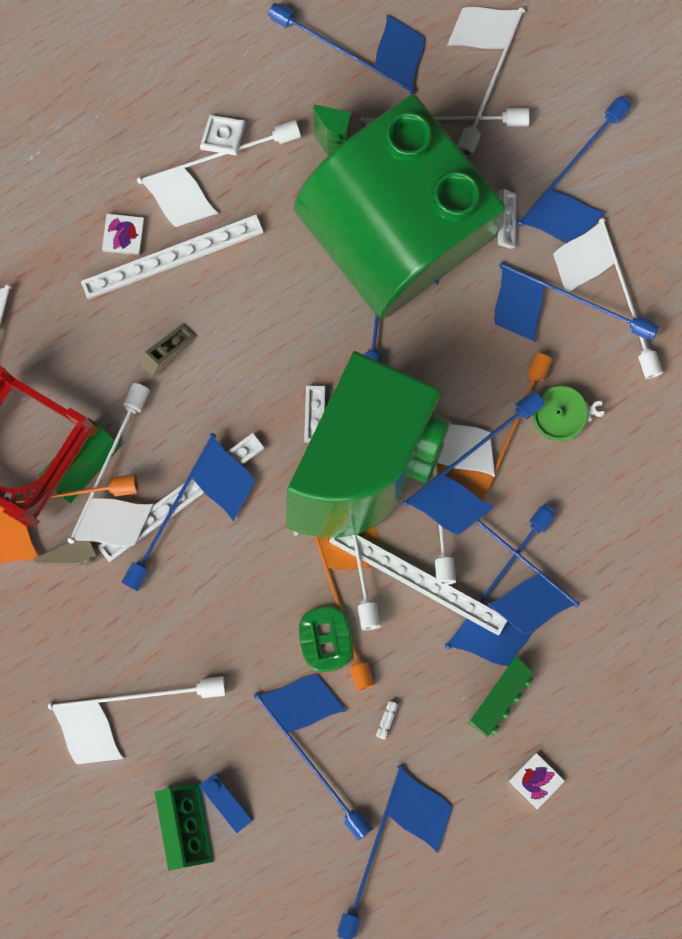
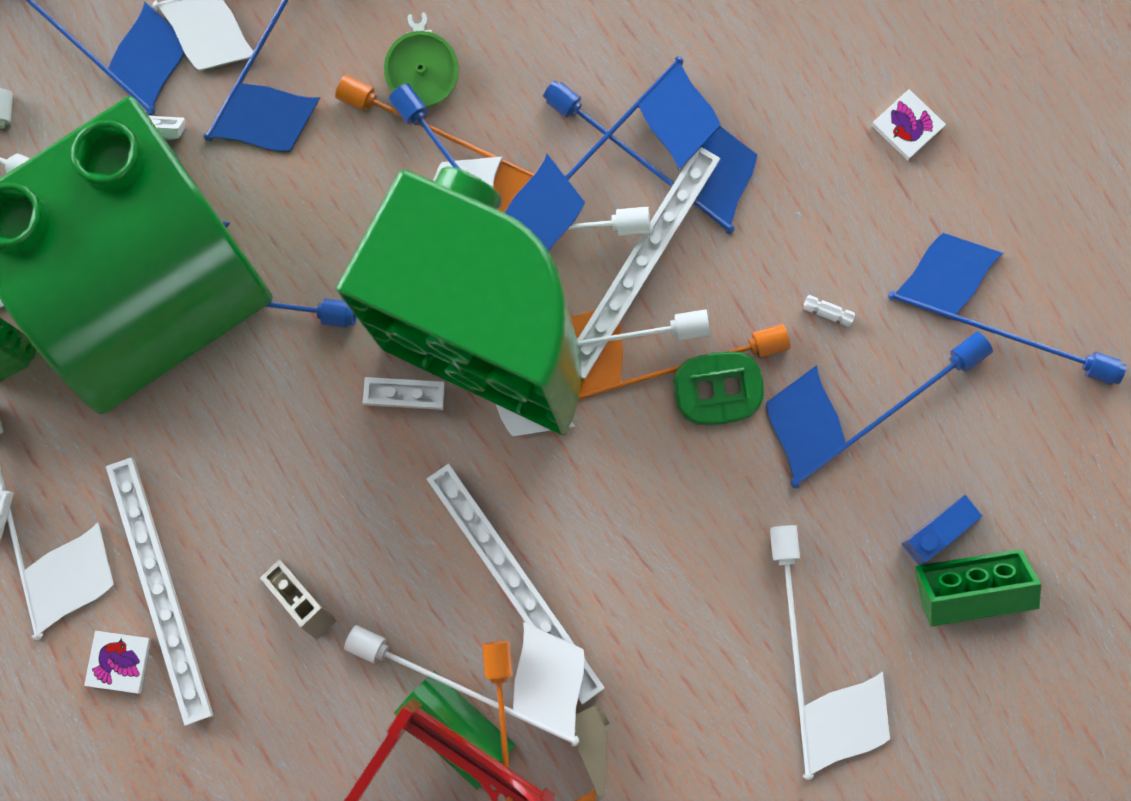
camera: 85 degrees left, 0 degrees up
(220, 480) = (491, 526): blue flag -> none
(500, 698) = (801, 162): green slope -> none

